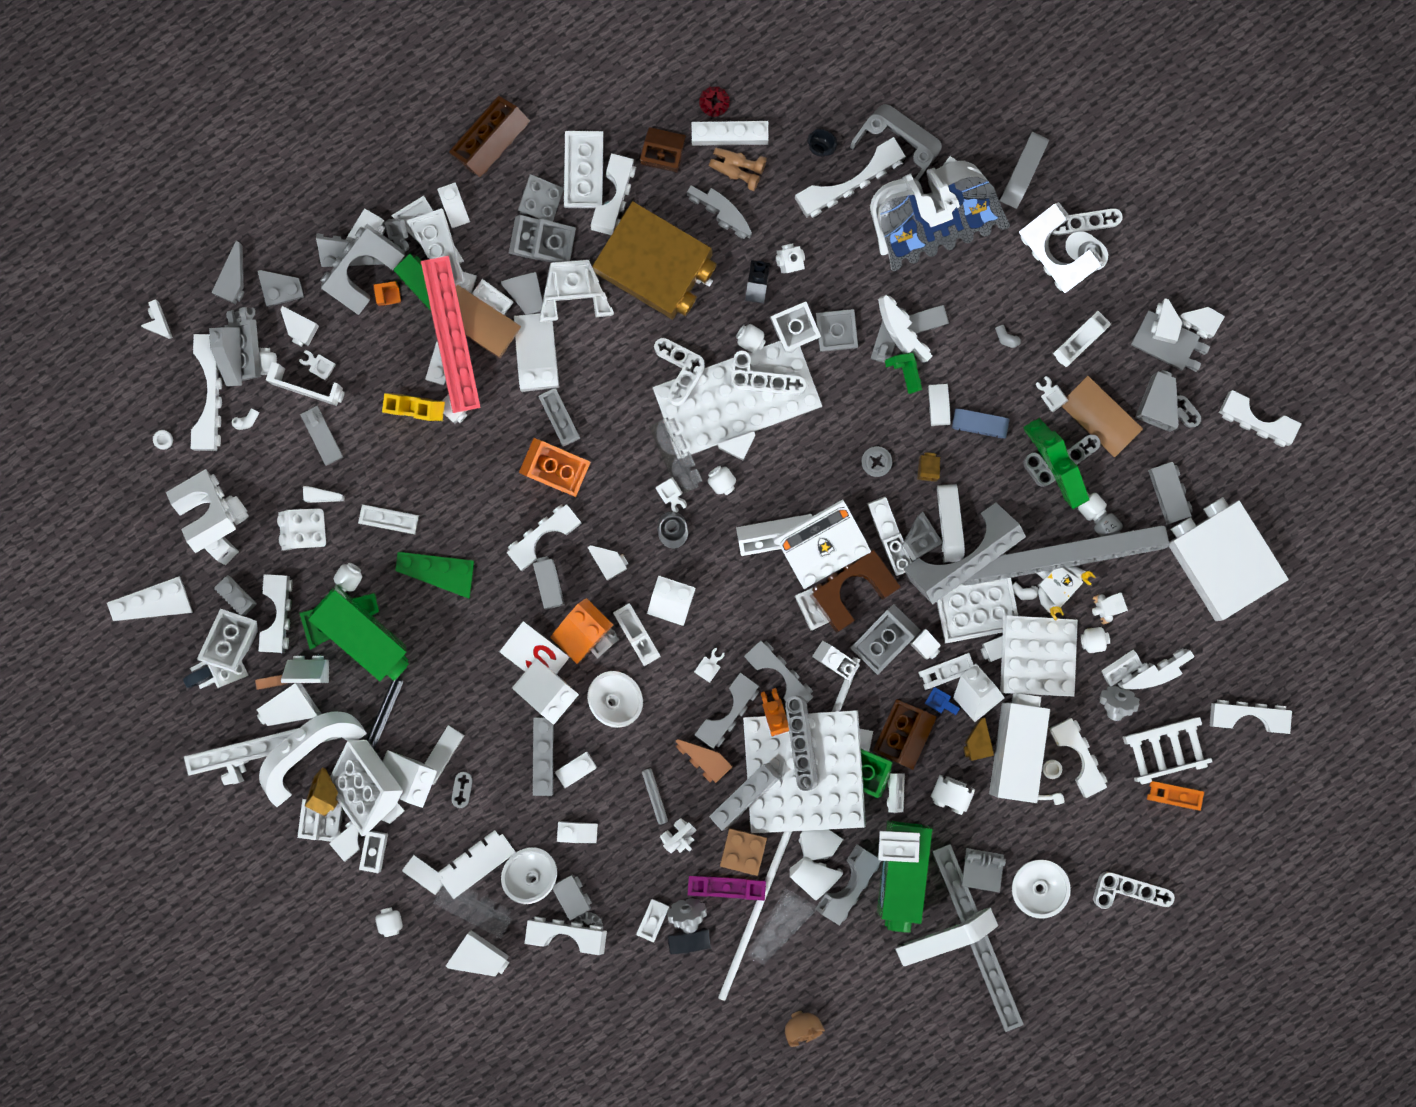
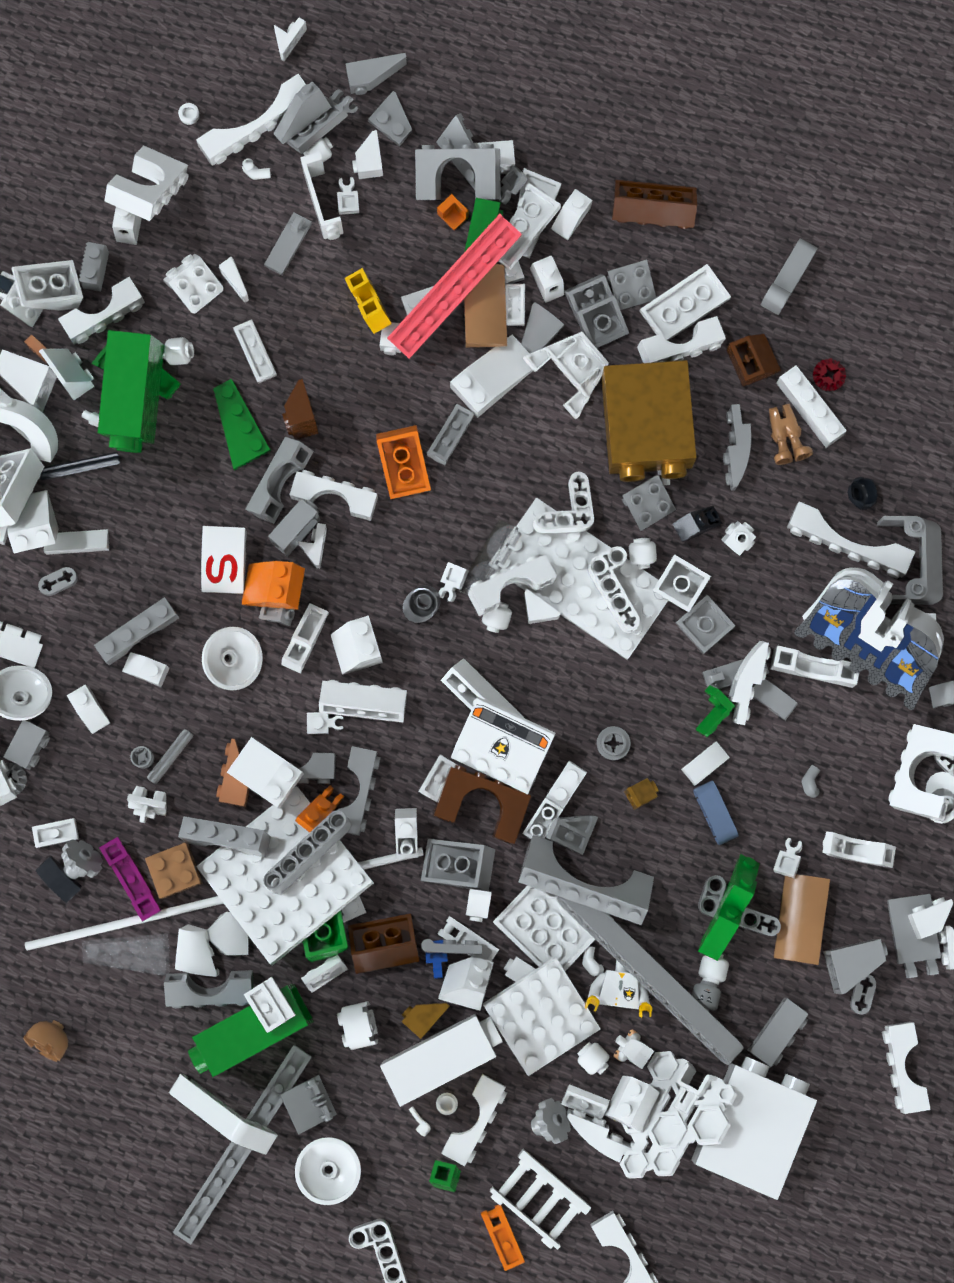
camera: 55 degrees right, 5 degrees down
(155, 601) = (43, 204): white wing -> none
(237, 509) = (170, 215): white brick -> none
(356, 676) = (93, 418): none -> white bar
(465, 519) = (298, 414): none -> reddish brown slope
(491, 258) = (546, 277): none -> white torso
(492, 553) = (288, 459): none -> light grey arch
(545, 691) = (195, 590): white slope -> none
(576, 581) = (315, 550): none -> white slope
(608, 561) = (352, 567): white slope -> none
(618, 76) = (789, 276): none -> light grey beam
(643, 819) = (138, 755): none -> light grey wheel
(711, 428) = (535, 573): none -> white arch
(715, 624) = (362, 701): none -> white brick
(716, 306) = (648, 502): none -> light grey hinge
(719, 734) = (265, 772): none -> white slope
(924, 274) = (804, 665): none -> white arch
(943, 686) = (450, 946): none -> light grey plate
(950, 523) = (605, 848): white beam -> none
(1103, 806) = (445, 1176): none -> green brick
(1146, 634) = (632, 1103): none -> white slope
(1184, 621) = (669, 1128): none -> white piece

